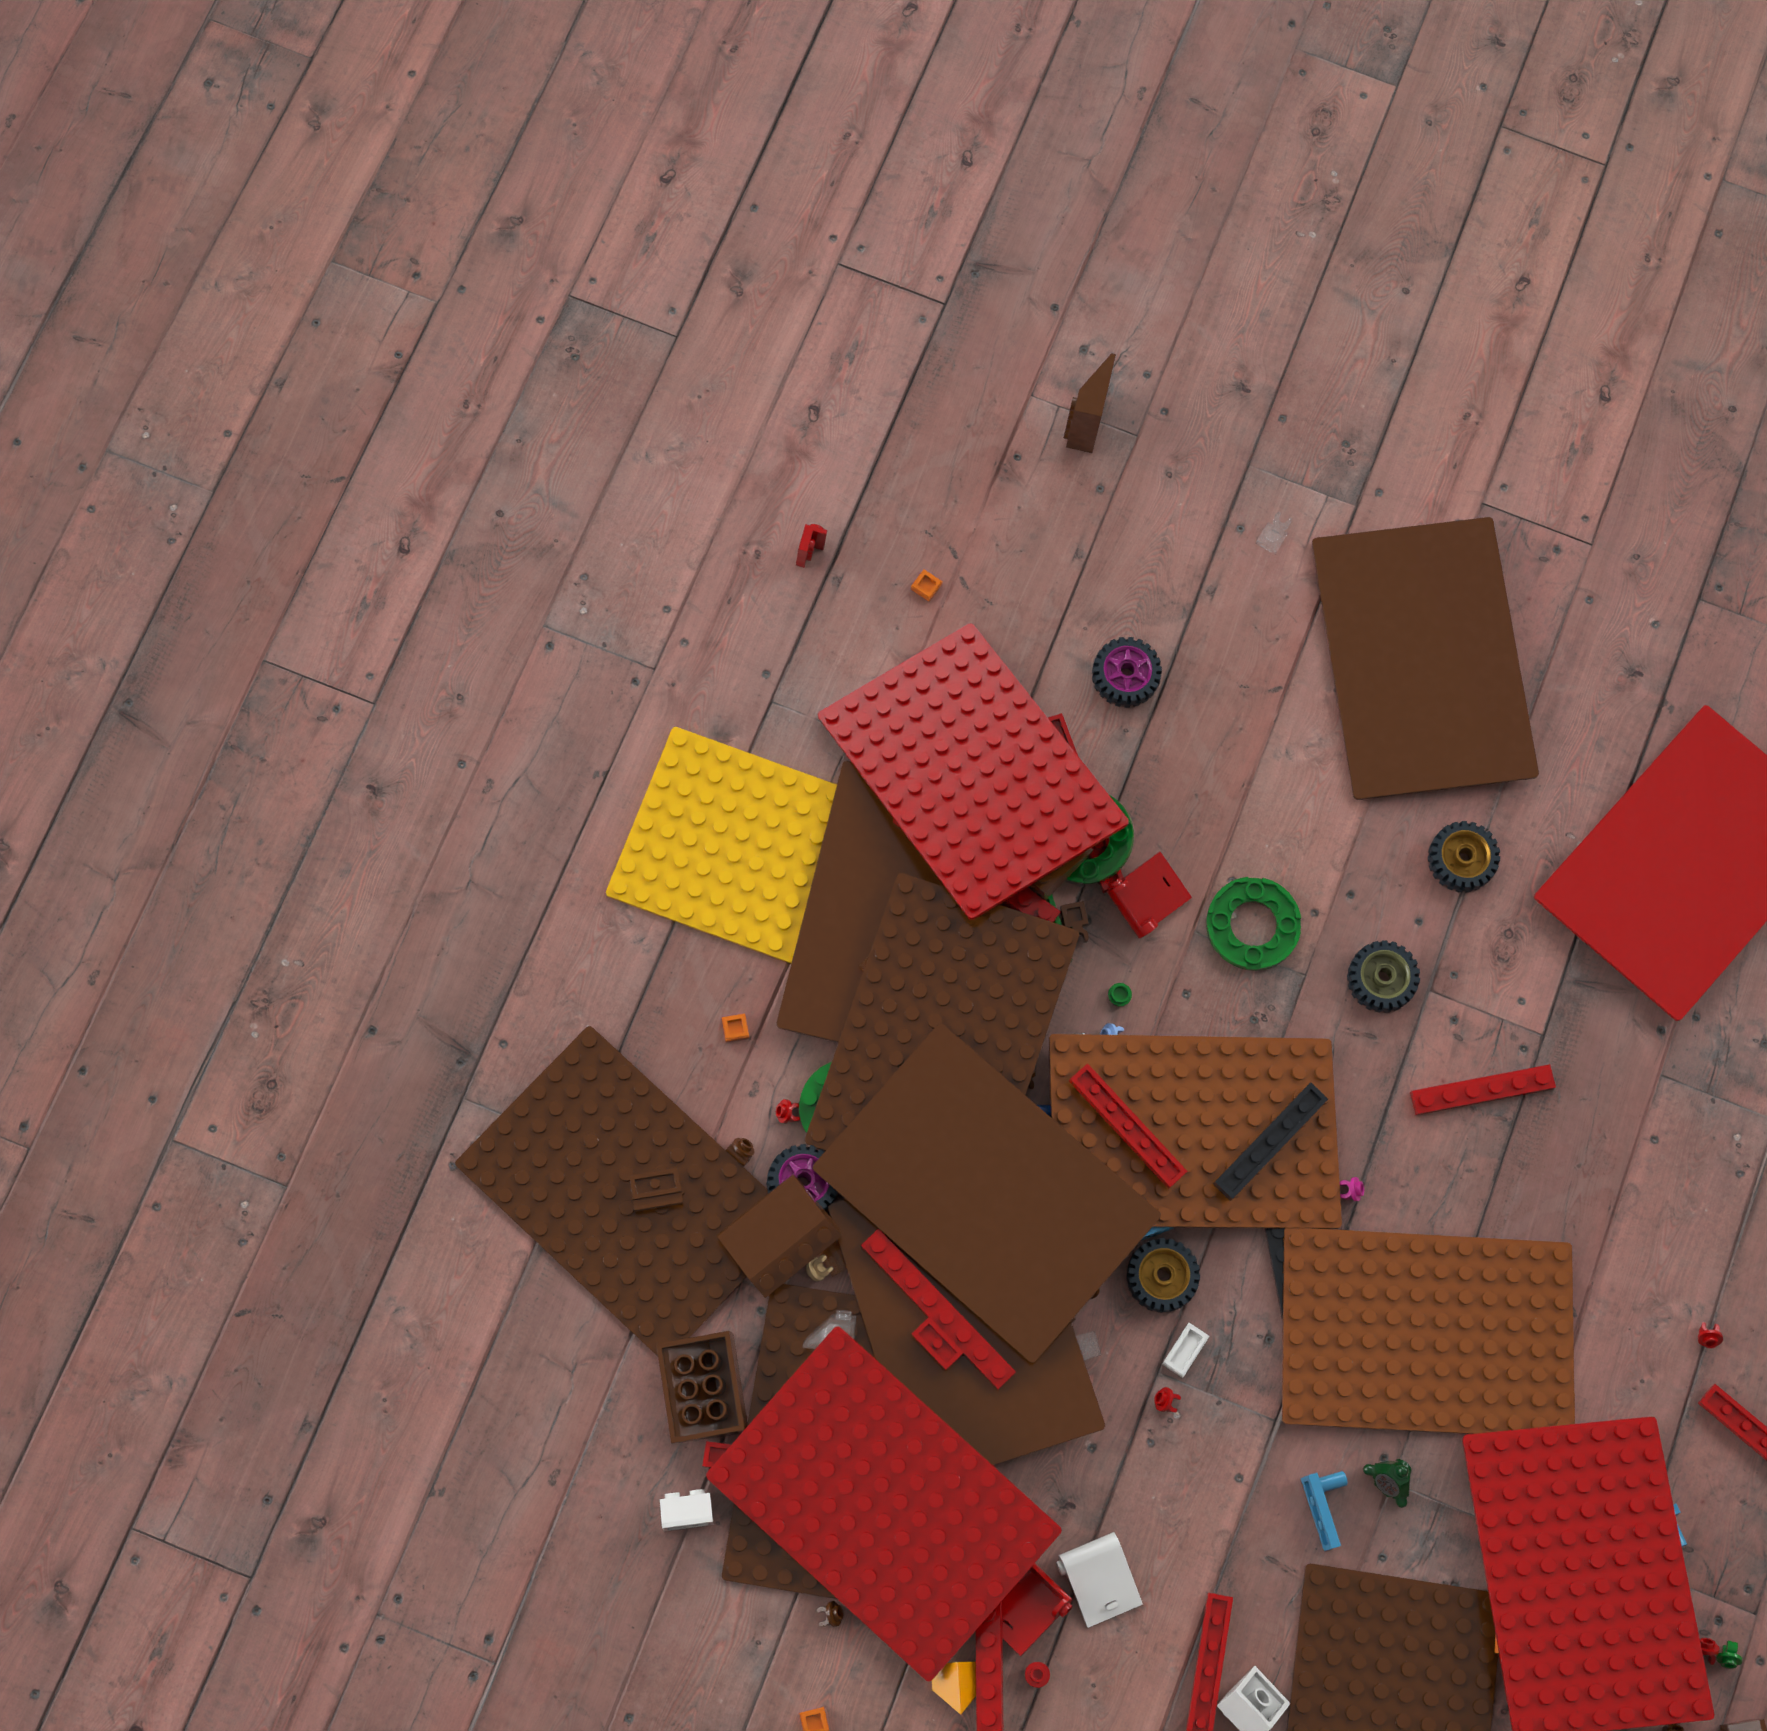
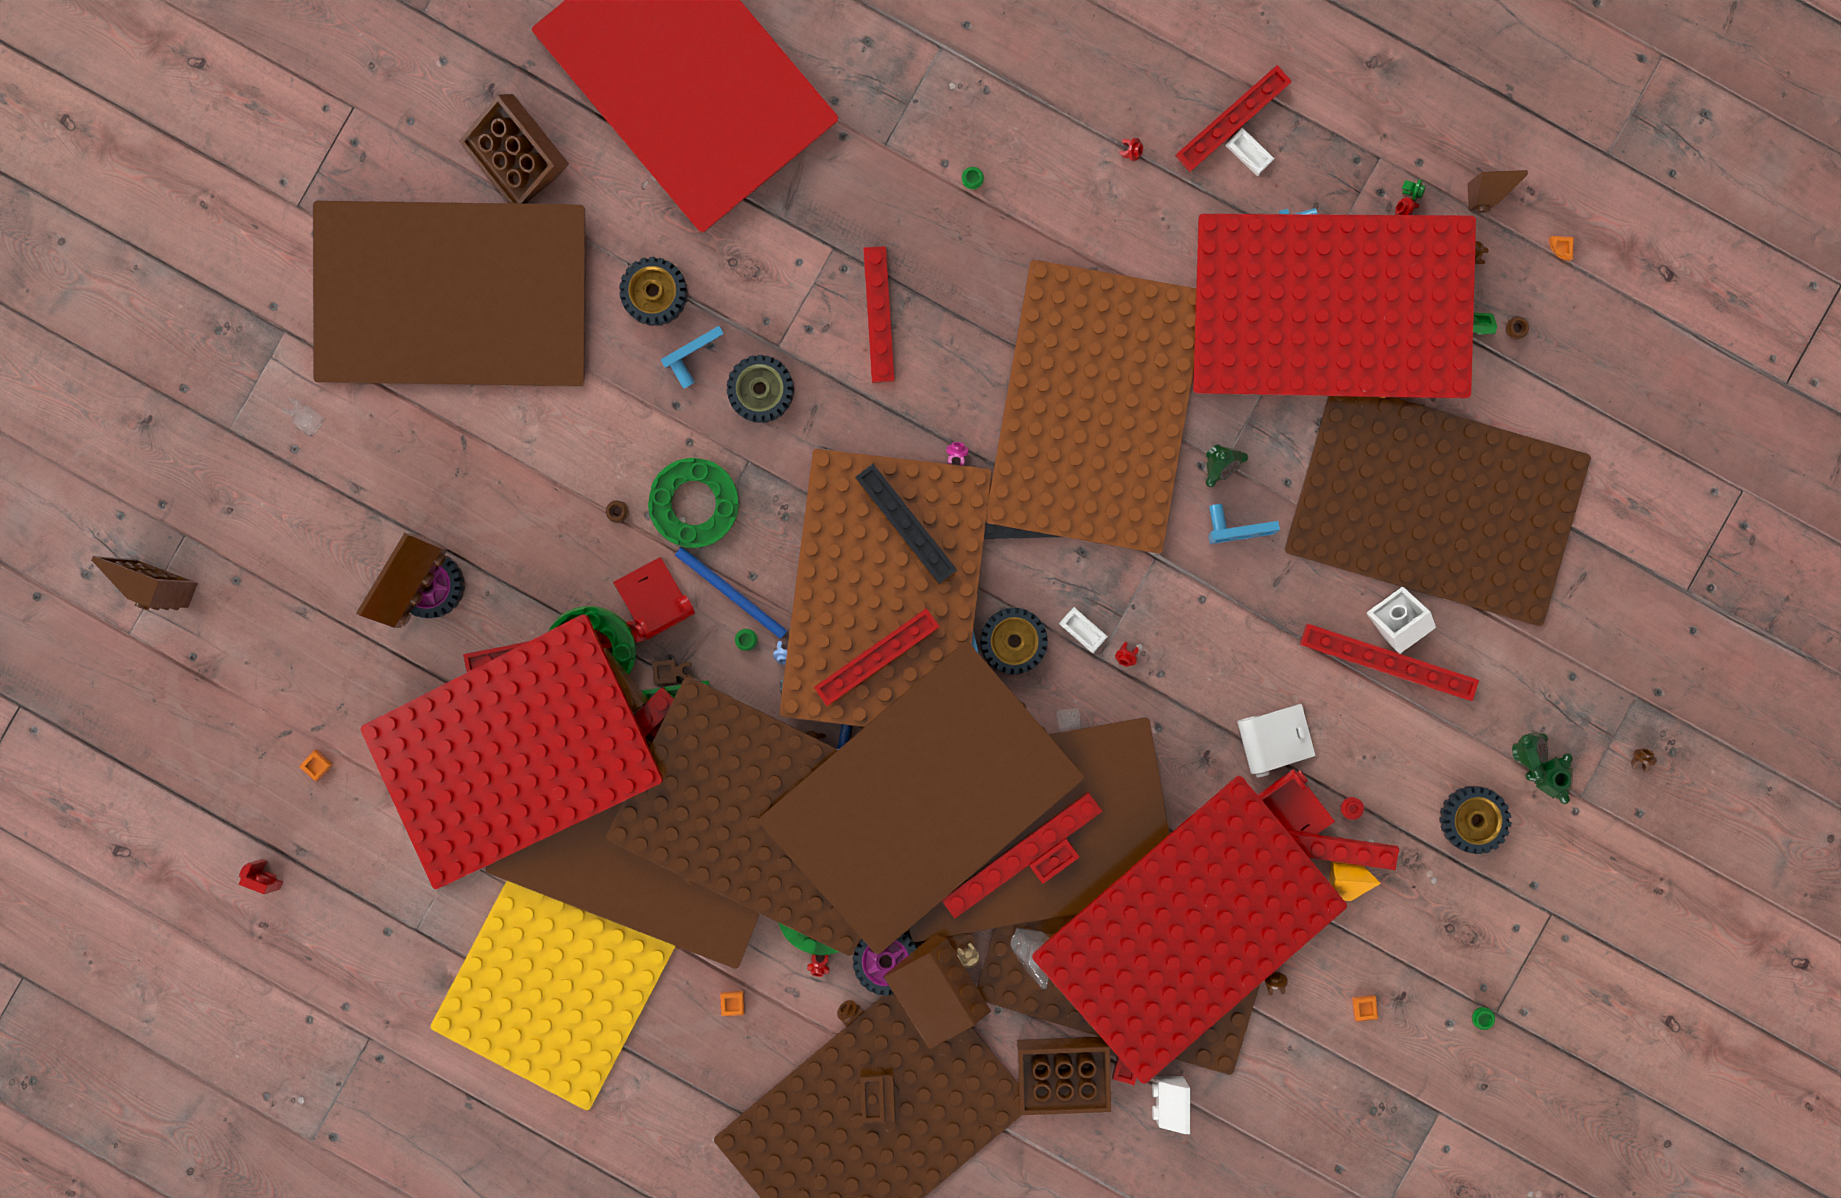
camera: 75 degrees left, 15 degrees up
(1132, 643) = (403, 580): none -> reddish brown slope
(1166, 973) = (731, 593): none -> blue piece
(1234, 841) = (610, 511): none -> reddish brown plate
(1400, 886) = (675, 361): none -> dark azure piece
(1580, 701) = (513, 150): none -> reddish brown slope
(1645, 1169) = (972, 178): none -> green plate
(1733, 1466) = (1249, 152): none -> white tile

